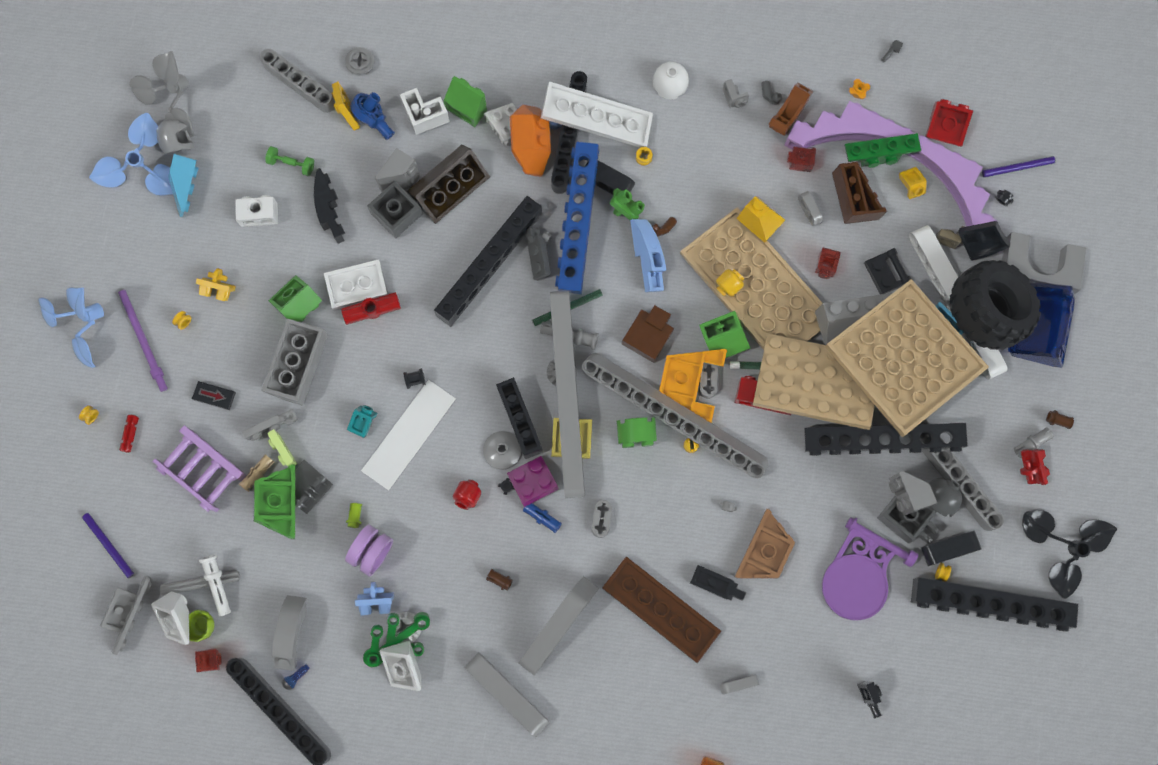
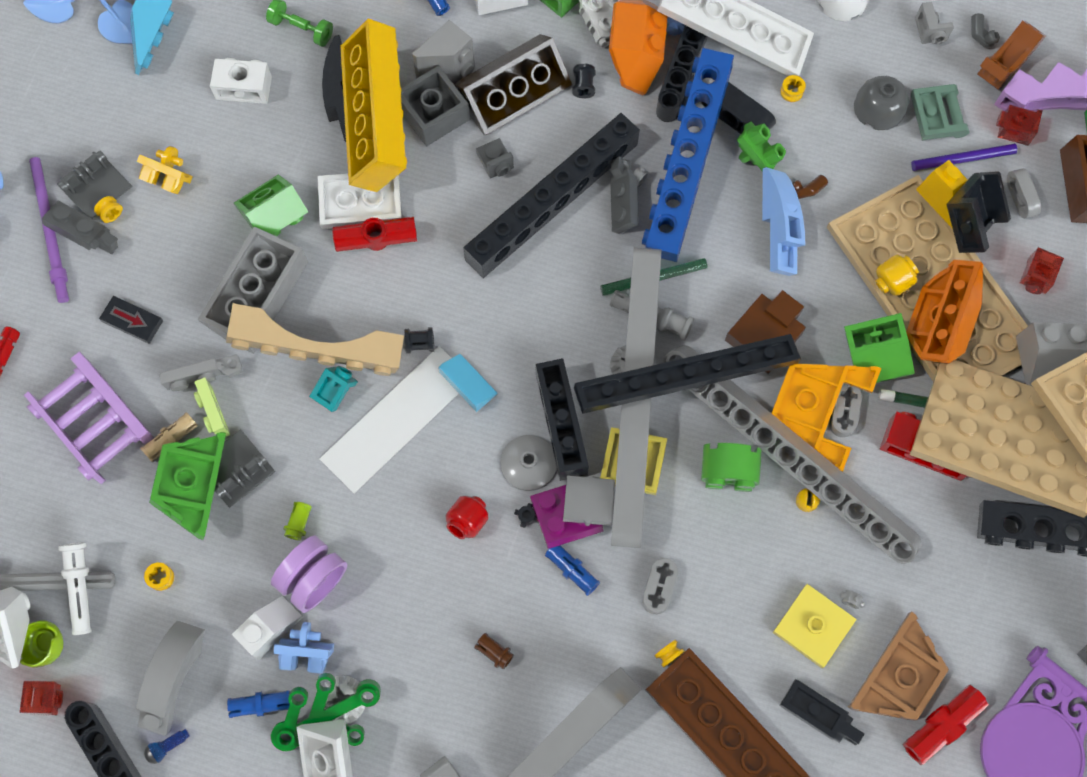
camera: 10 degrees right, 5 degrees down
(164, 336) = (79, 228): none -> dark grey hinge
(167, 302) = (92, 182): none -> dark grey hinge
(274, 570) = (165, 582): none -> yellow bush
(301, 391) = (255, 329): none -> tan arch
(347, 589) = (267, 627): none -> white slope
(351, 640) = (258, 704): none -> blue pin
(353, 219) = (372, 106): none -> yellow brick
(445, 240) = (495, 158): none -> dark grey bracket
(452, 402) = (467, 382): none -> medium azure slope
(497, 172) = (584, 81): none -> black bush
(546, 470) = (589, 500): none -> light grey piece
(597, 375) = (686, 373): none -> black plate
(614, 561) = (669, 653): none -> yellow bush
(706, 157) = (881, 102): none -> dark grey cylinder
(706, 528) = (814, 626): none -> light yellow plate
(741, 159) = (932, 114): none -> sand green plate
(766, 188) = (963, 157): none -> dark purple bar
(766, 304) = (947, 312): none -> orange wedge
(777, 228) = (976, 209): none -> black panel
(797, 577) = (945, 724): none -> red piece

